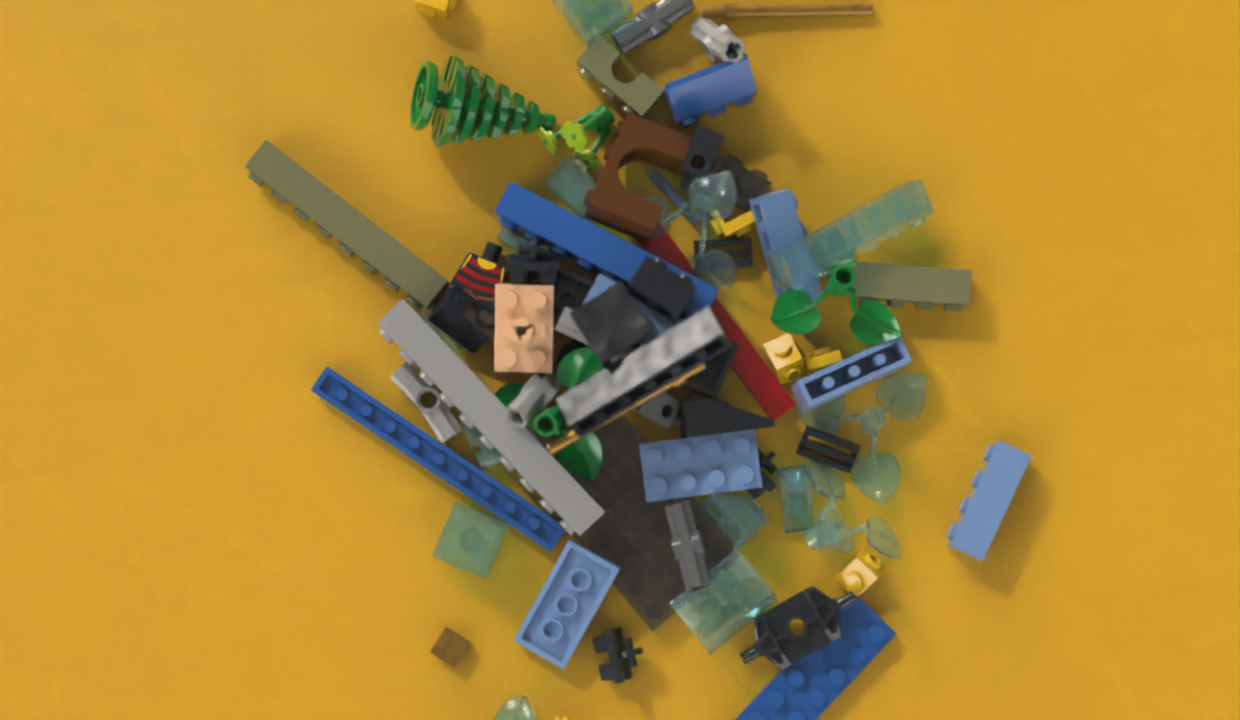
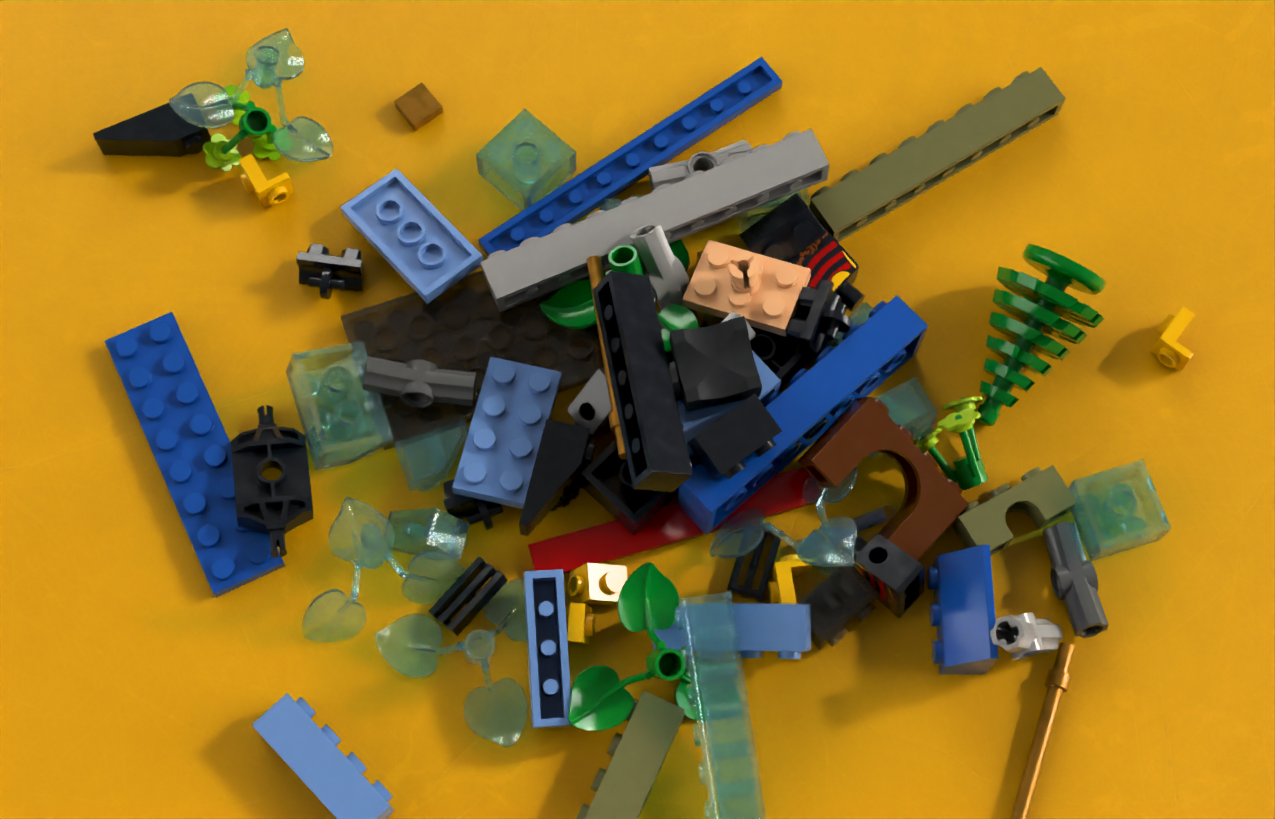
camera: 115 degrees right, 15 degrees down
(861, 572) = (303, 578): yellow bracket -> none

